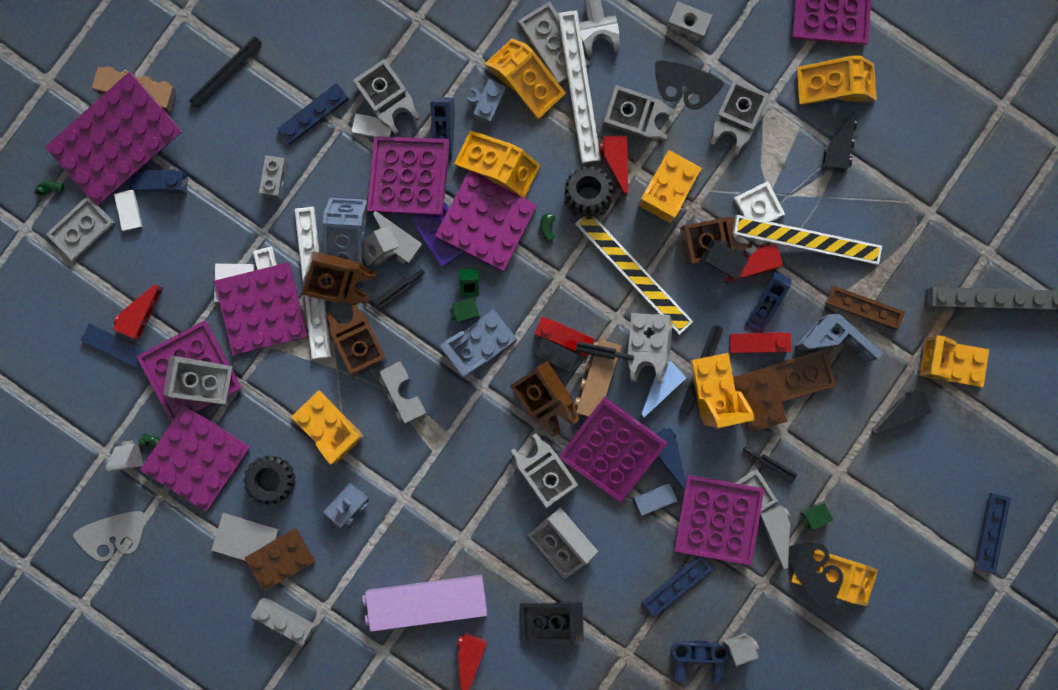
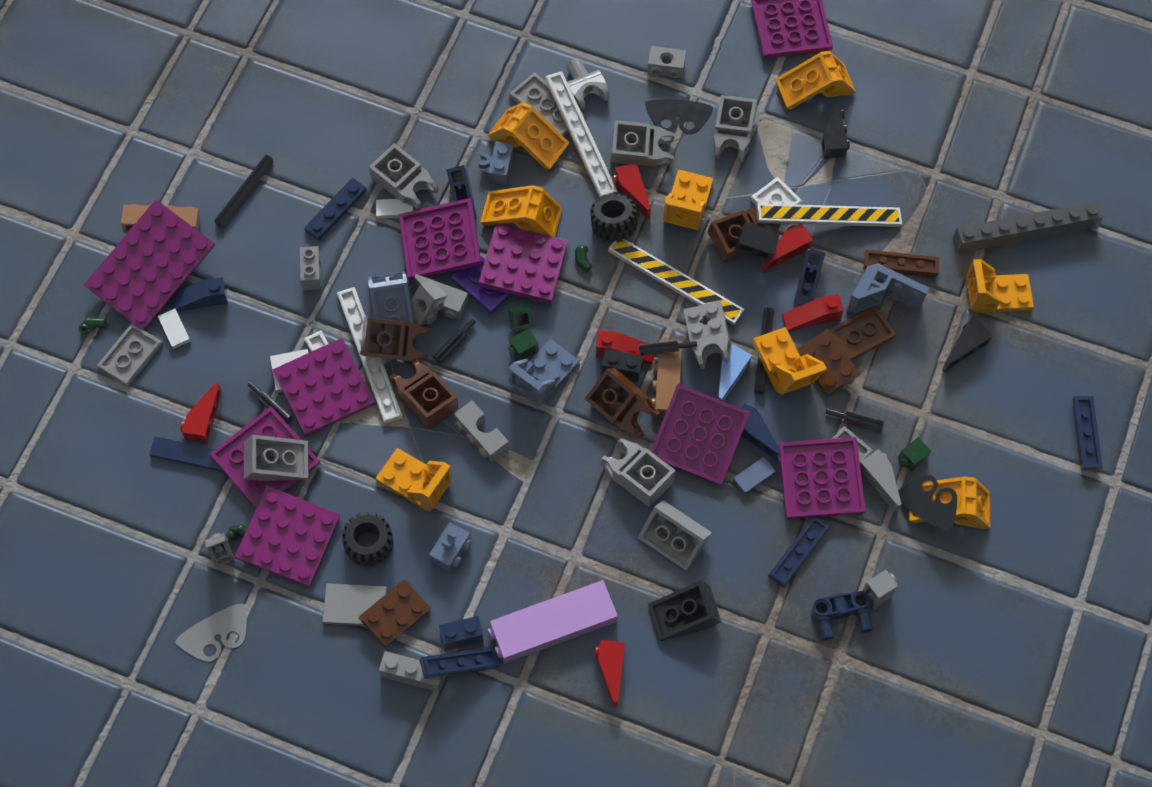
camera: 10 degrees left, 20 degrees down
(207, 314) = (268, 401): none -> black axle
(327, 626) = (459, 662): none -> dark blue tile
(337, 594) = (461, 633): none -> dark blue brick

